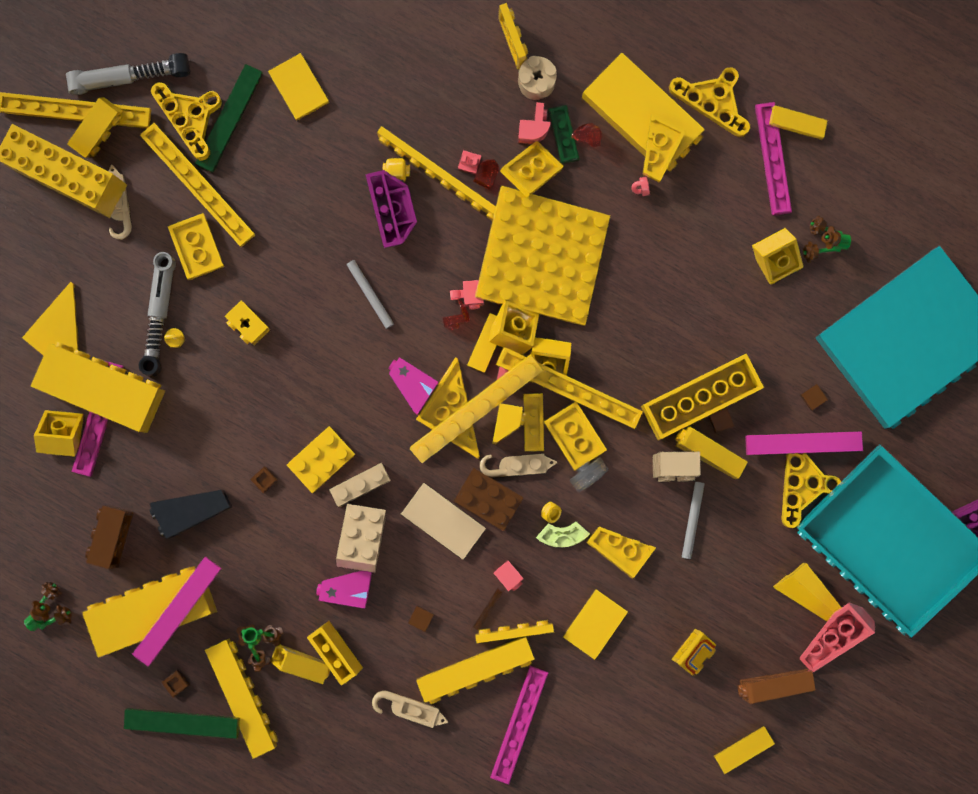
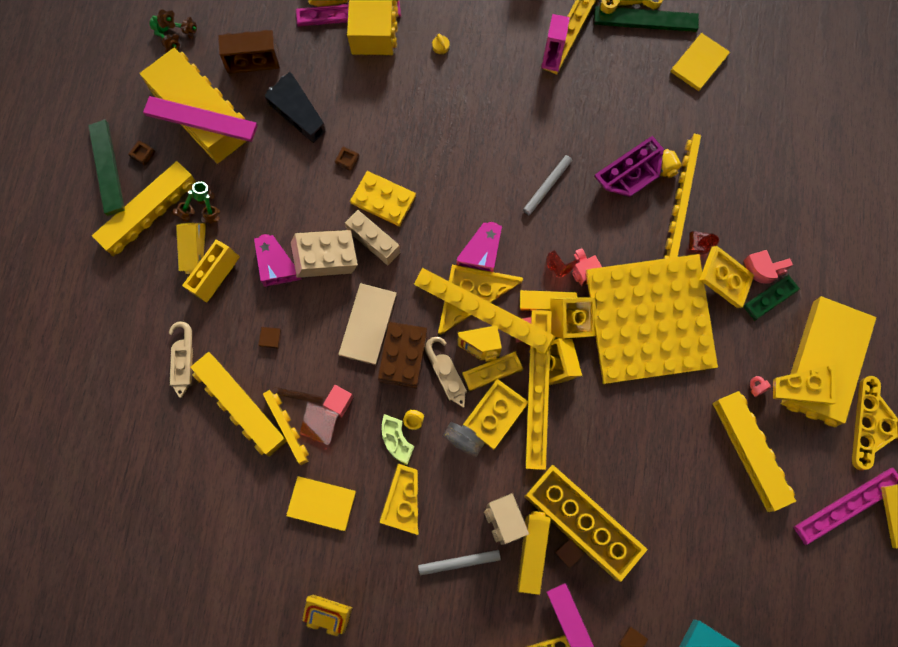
camera: 75 degrees right, 10 degrees down
(157, 311) = (495, 14): piece -> none
(196, 246) = (524, 32): yellow plate -> none
(225, 223) = (555, 42): none -> dark pink slope
(242, 313) = (478, 93): yellow brick -> none
(469, 162) = (705, 223): coral tile -> none
(512, 35) = (838, 216): yellow plate -> none
(519, 725) = (199, 466): dark pink tile -> none
(522, 600) = (319, 423): none -> clear red piece
(541, 87) = (812, 252): tan brick -> none
(589, 134) = (783, 316): clear red plate -> none
(696, 219) = (754, 452): none -> yellow brick
(778, 255) = (757, 547): yellow slope -> none
(831, 239) = (803, 592): reddish brown plant -> none

